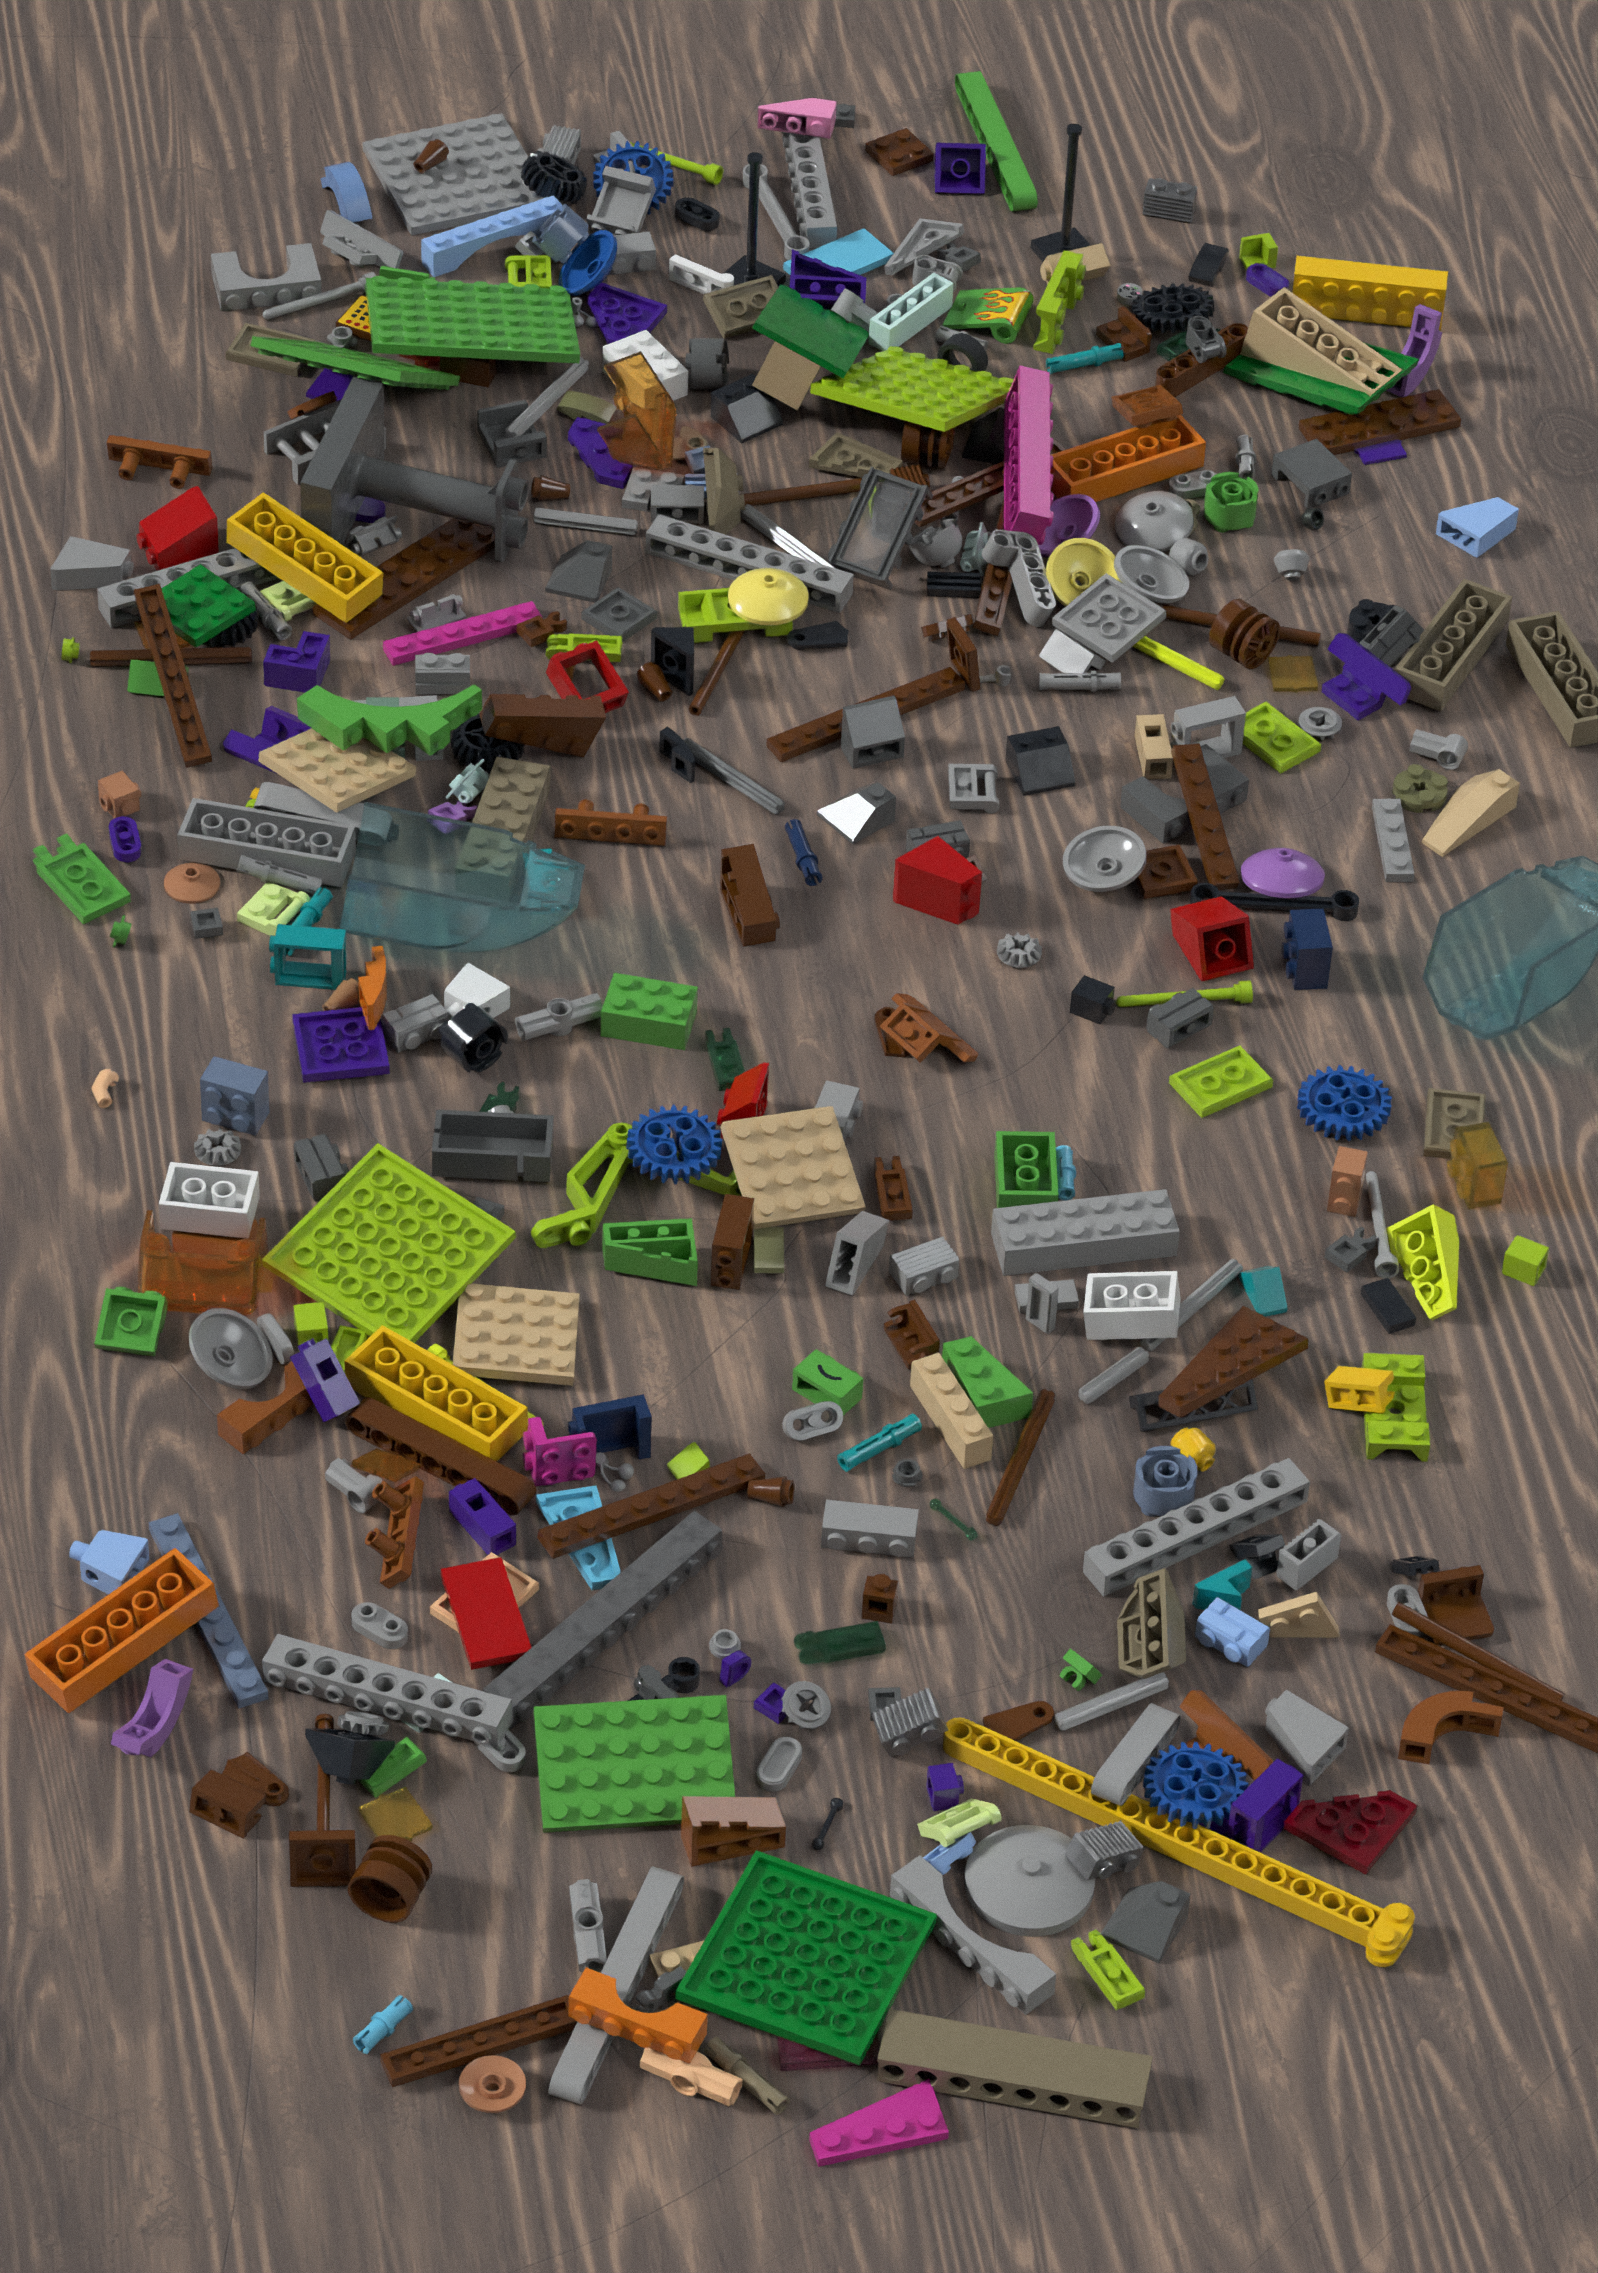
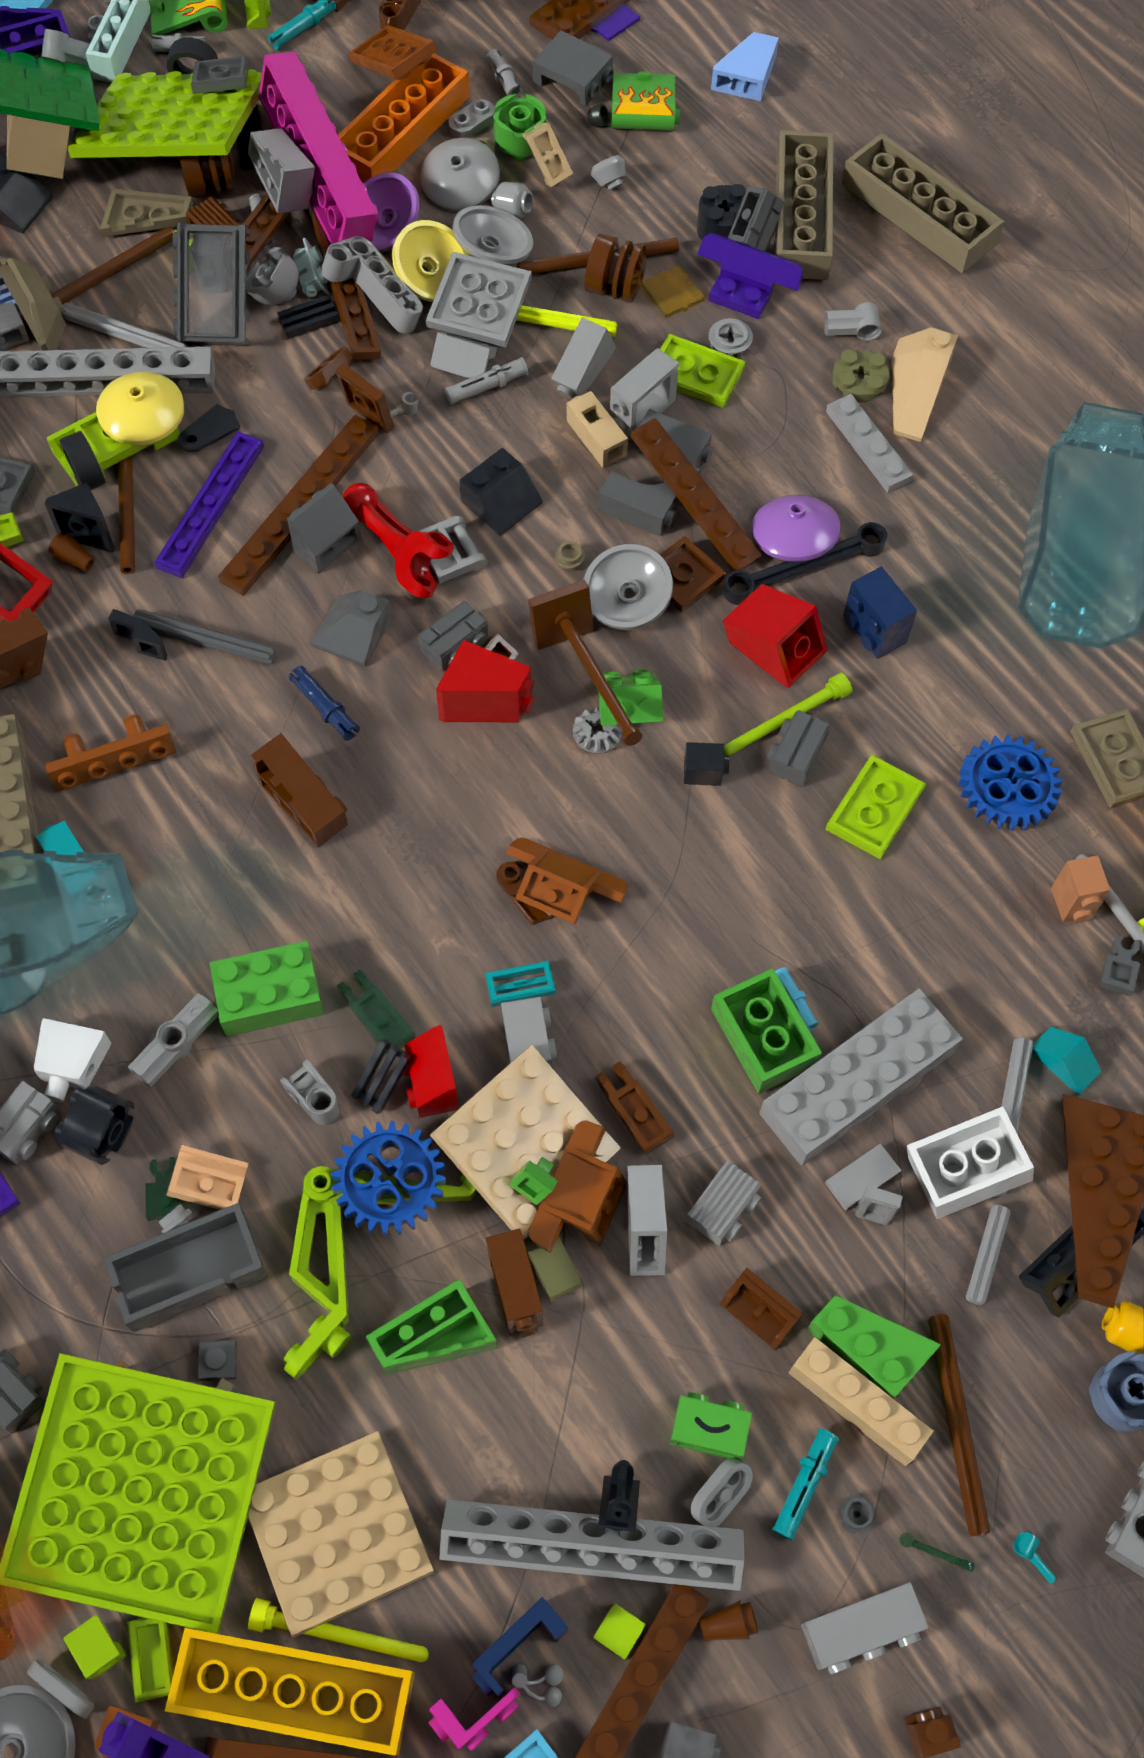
camera: 25 degrees left, 20 degrees up
(535, 1099) = (207, 1178): none -> light nougat plate
(646, 1088) = (309, 1089): none -> light grey piece
(698, 612) = (82, 460): none -> black tyre
(698, 1405) = (578, 1546): none -> light grey brick
(703, 1090) = (368, 1097): none -> black tile
(735, 1386) = (619, 1499): none -> black hinge
(782, 1180) = (534, 1180): none -> bright green tile
(789, 689) = (209, 505): none -> dark purple tile
(815, 1210) = (584, 1193): none -> dark orange plate
(866, 1093) = (529, 969): none -> teal tile
(935, 768) = (408, 548): none -> red piece
(979, 372) = (220, 74): none -> dark grey tile
(989, 462) = (282, 169): none -> light grey wedge
(1023, 1540) = (1025, 1546): none -> teal hand
(1035, 860) = (565, 616): none -> reddish brown tile
(1055, 934) = (637, 693): none -> bright green bracket
(1072, 826) = (570, 555): none -> dark tan plate
(1173, 689) = (583, 359): none -> light grey slope
(1238, 529) = (548, 153): none -> tan hinge
(1361, 521) = (644, 102): none -> bright green door

